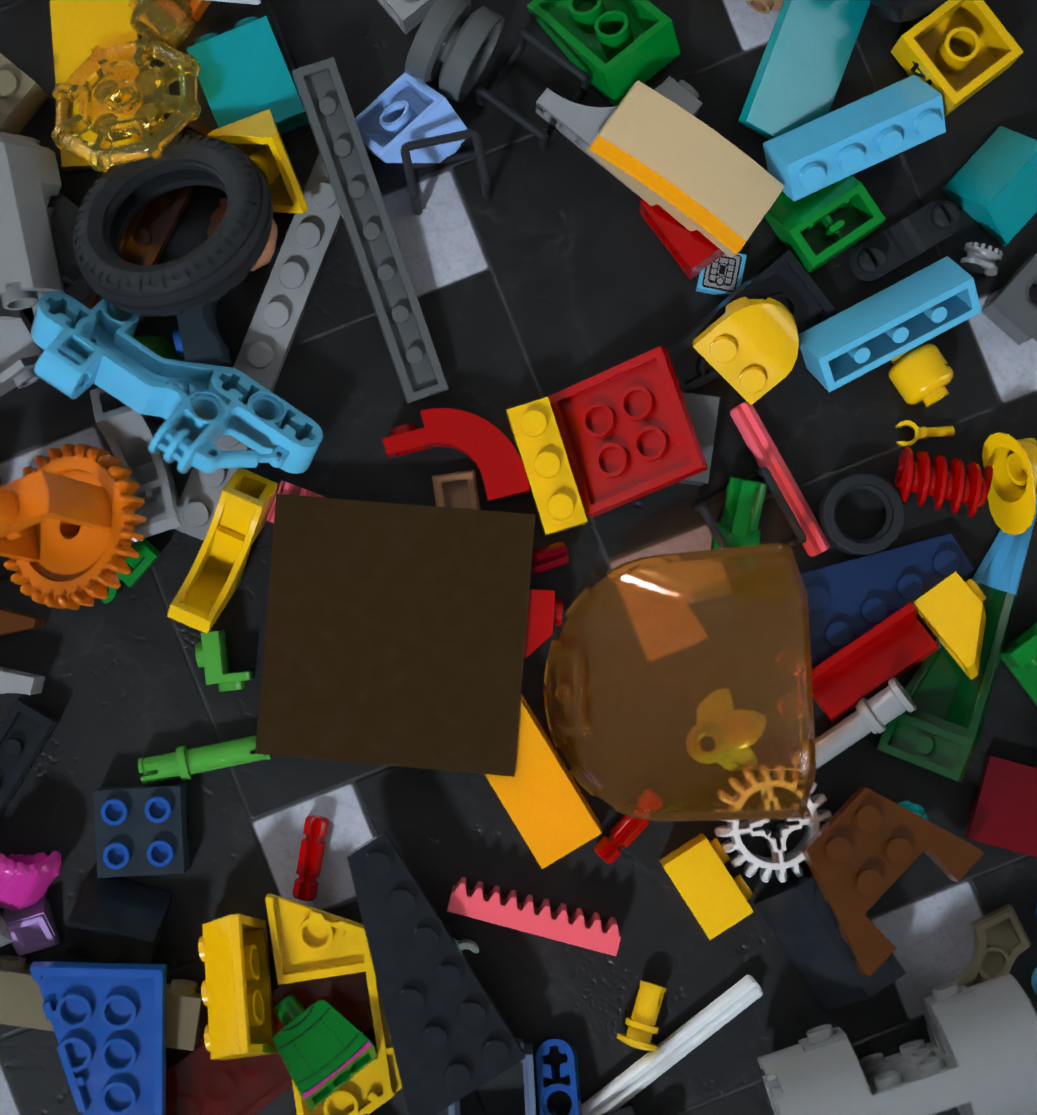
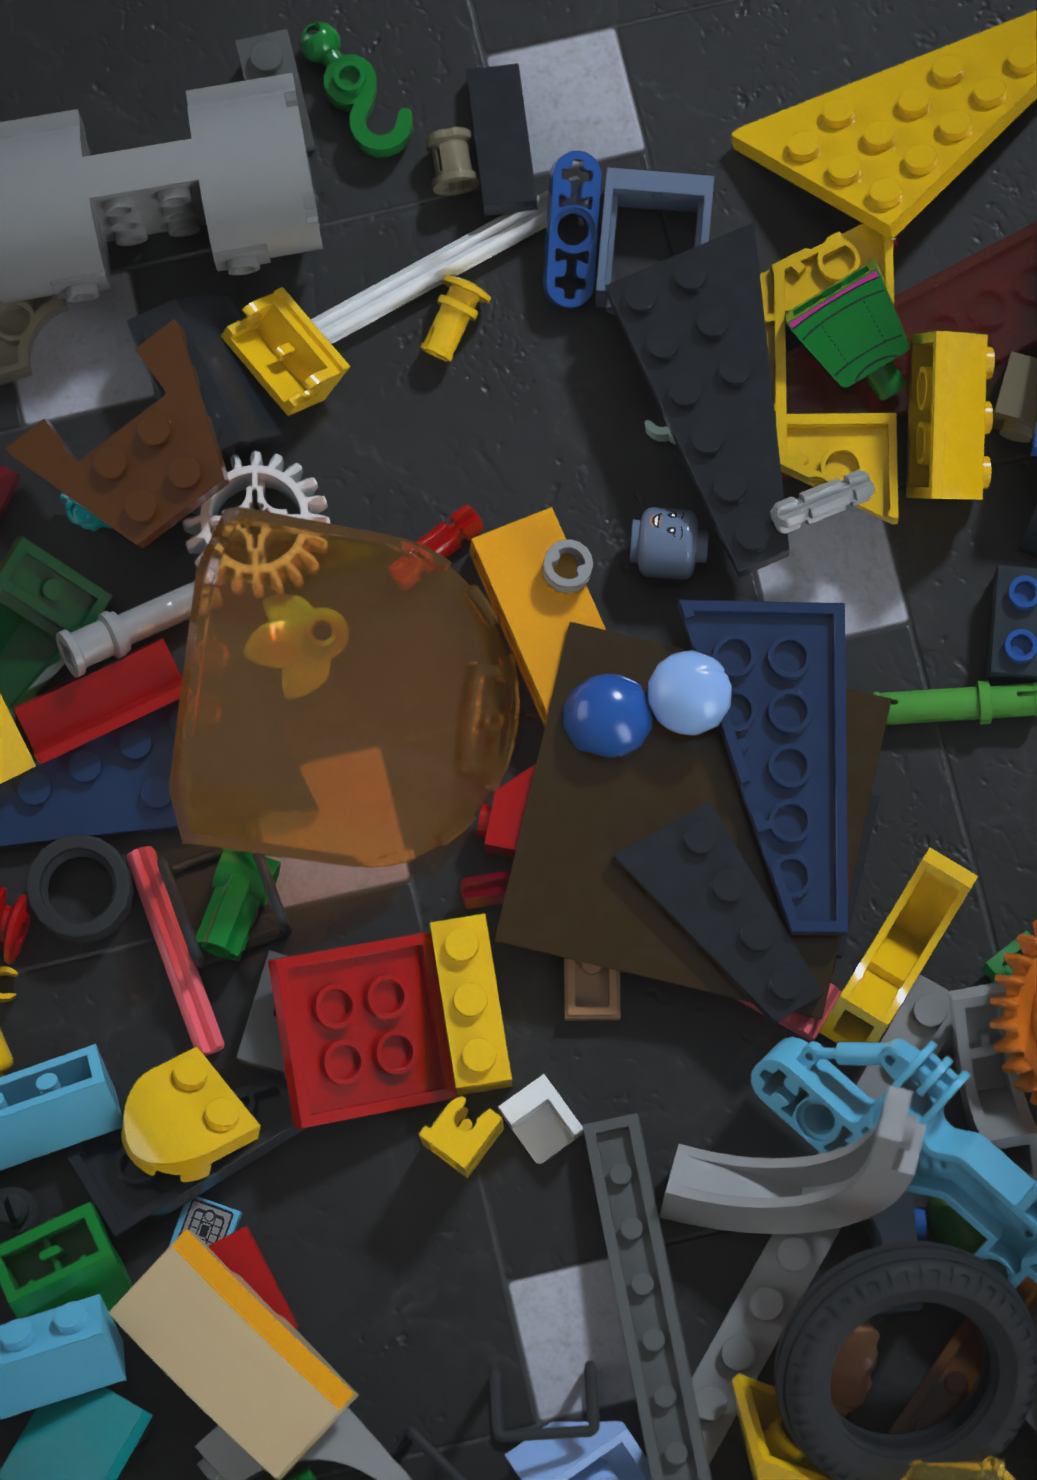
camera: 165 degrees left, 10 degrees down
(213, 656) = (930, 827): bright green bracket -> none
(271, 352) = (801, 1191): none -> light grey arch
(310, 857) = (841, 558): red axle -> none
(325, 899) = (822, 501): none -> light grey axle
(336, 725) = (787, 743): none -> dark blue wing
(369, 571) = (715, 898): none -> black wing
(410, 729) = (689, 693): none -> light blue hair
(446, 854) = (668, 543): none -> sand blue head
(472, 703) = (607, 715): none -> blue hair
(474, 436) = (570, 1066): red arch -> none
(481, 389) = (541, 1120): none -> white panel
(509, 816) = (552, 560): none -> light grey bush
(535, 920) = (570, 450): coral gear -> none
(538, 354) = (461, 1144): none -> yellow hinge
(707, 885) = (351, 462): yellow brick -> none
(773, 967) = (286, 352): none -> yellow hinge

